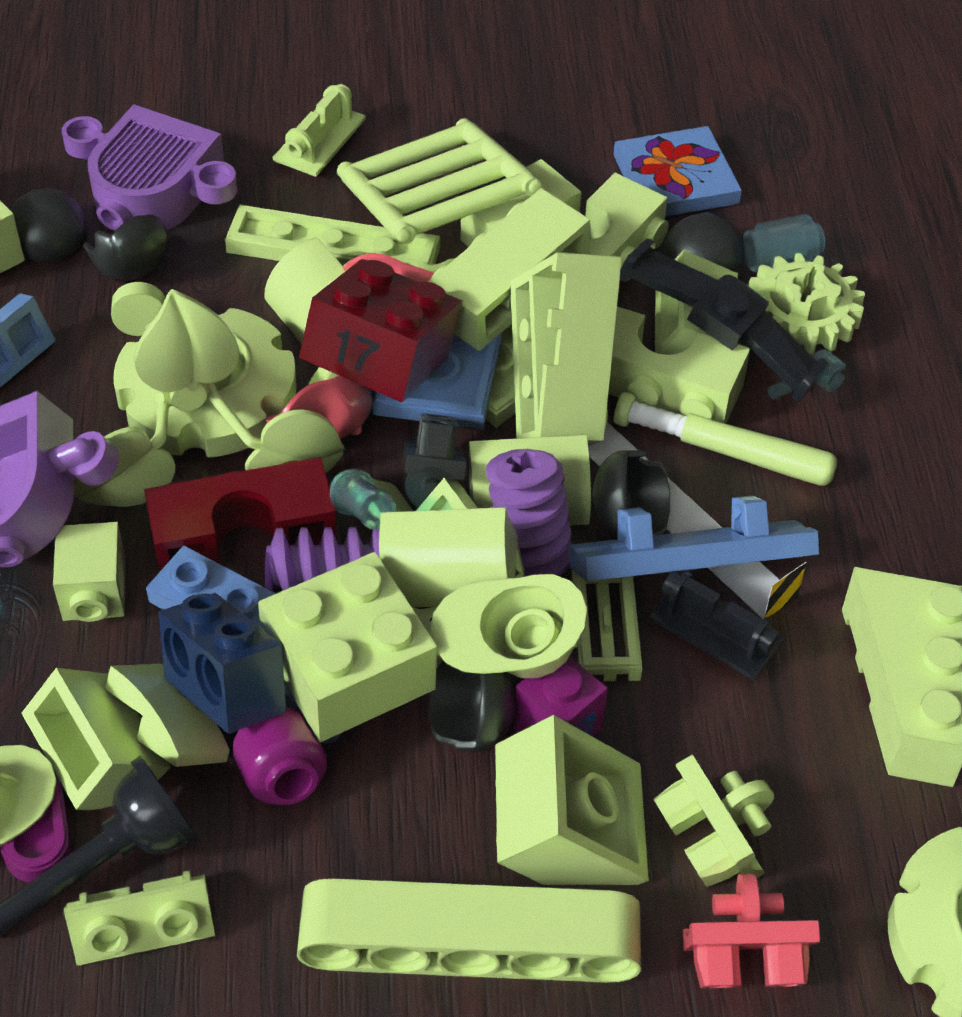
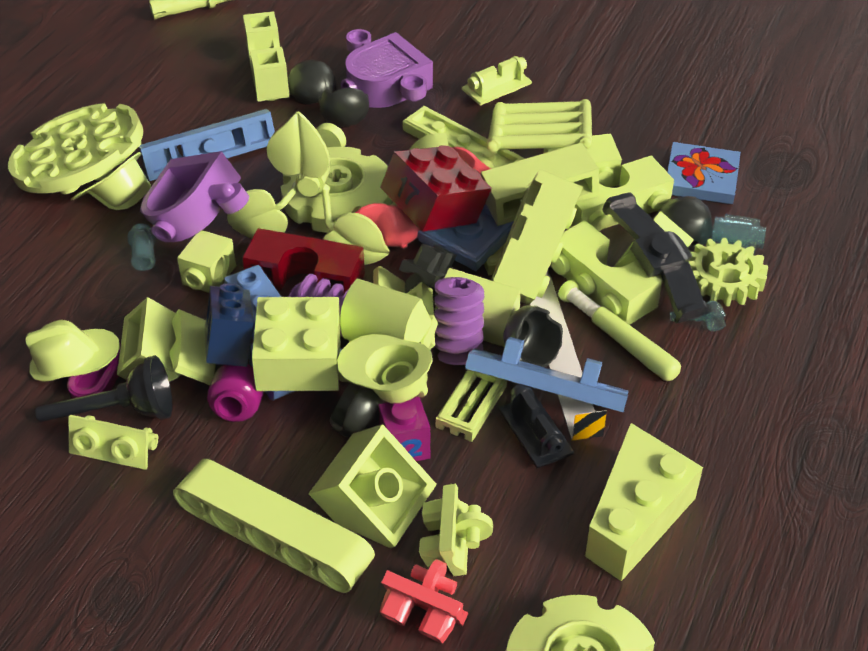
camera: 30 degrees right, 5 degrees down
(356, 494) = (367, 269): clear light blue pin -> none

